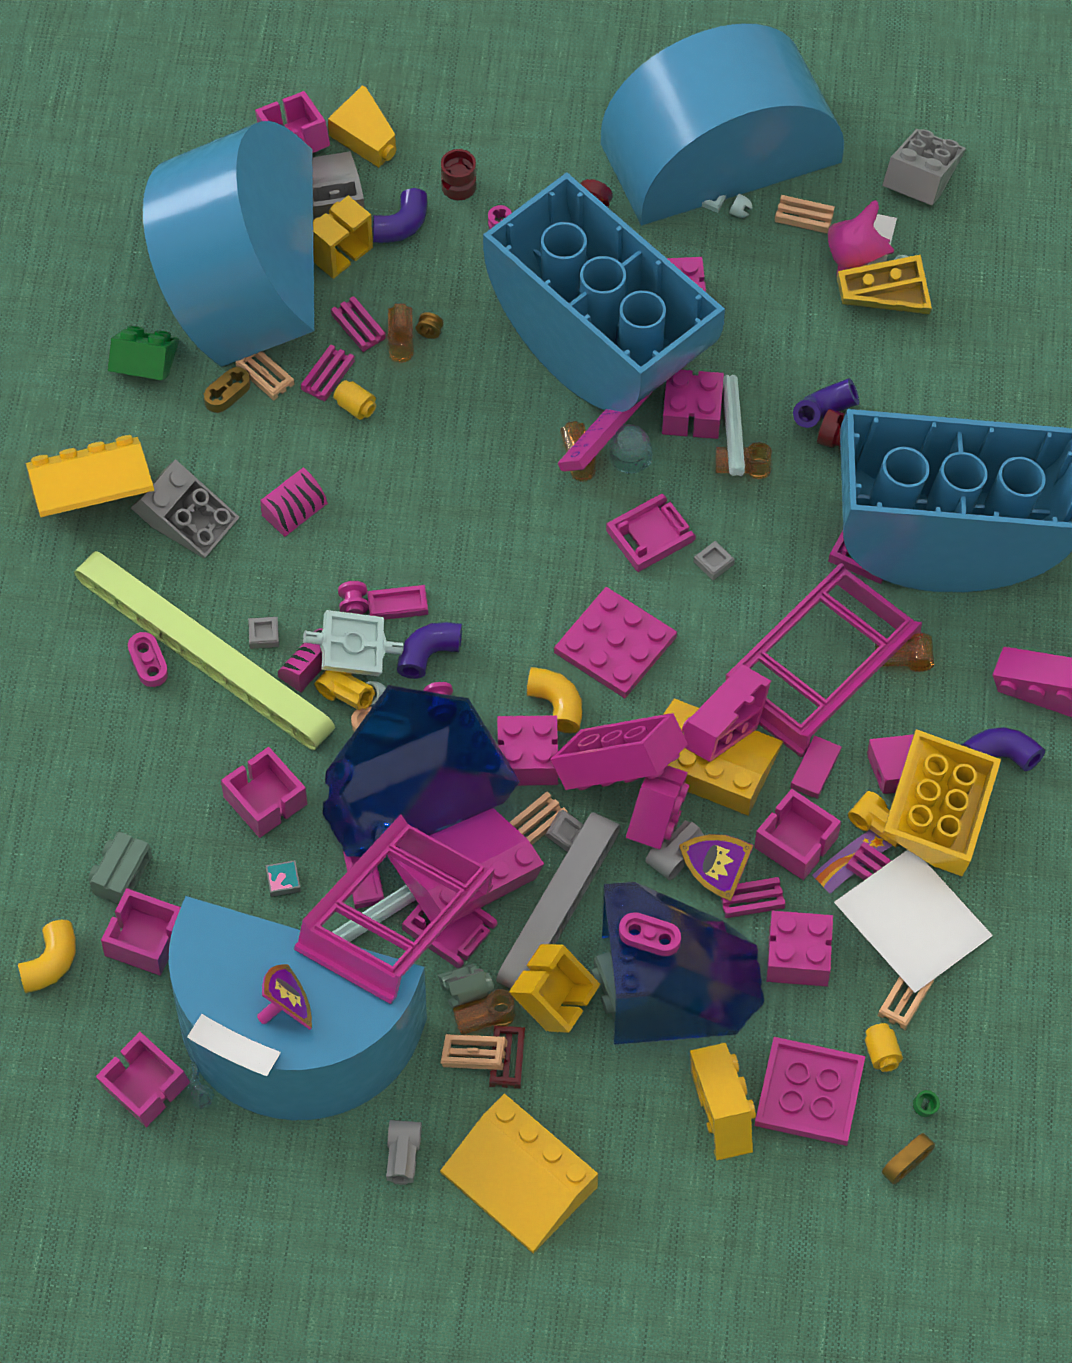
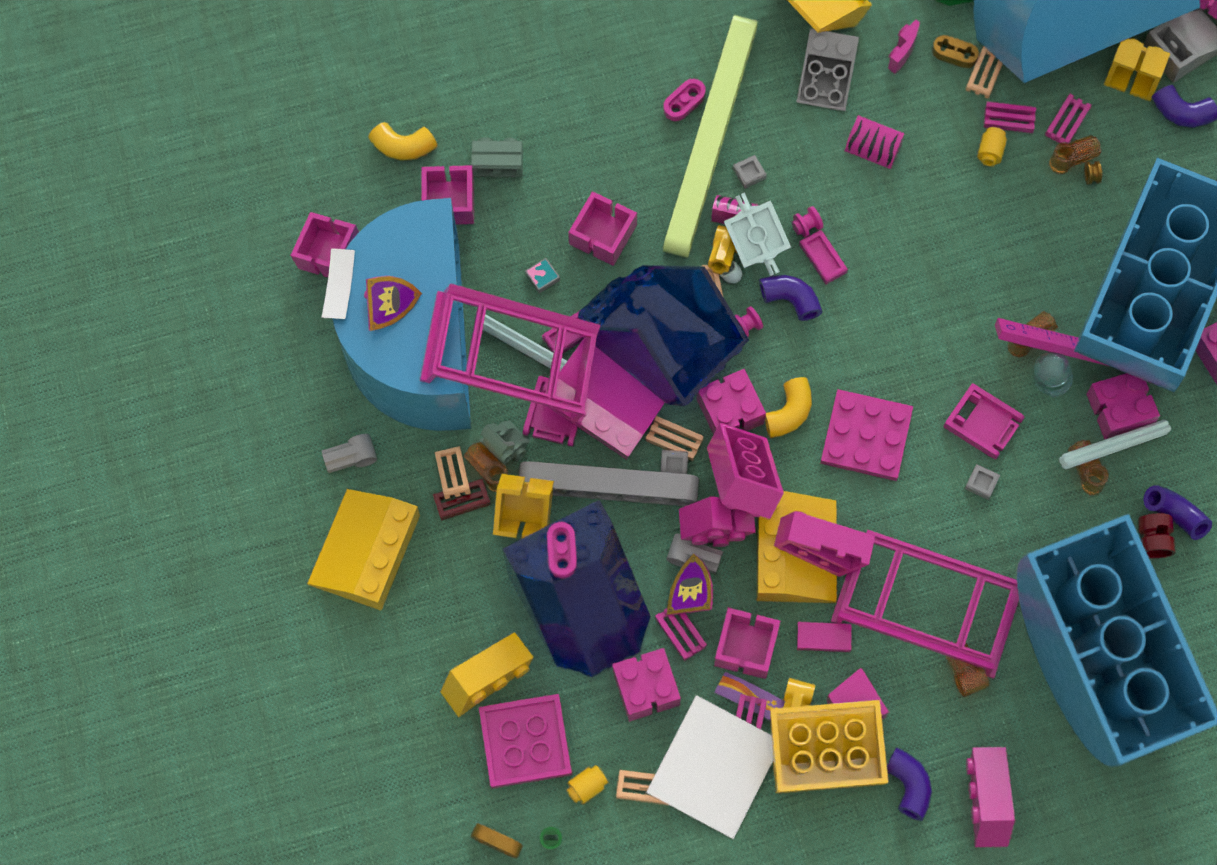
camera: 70 degrees right, 10 degrees up
(198, 428) = (905, 45): none -> dark pink slope

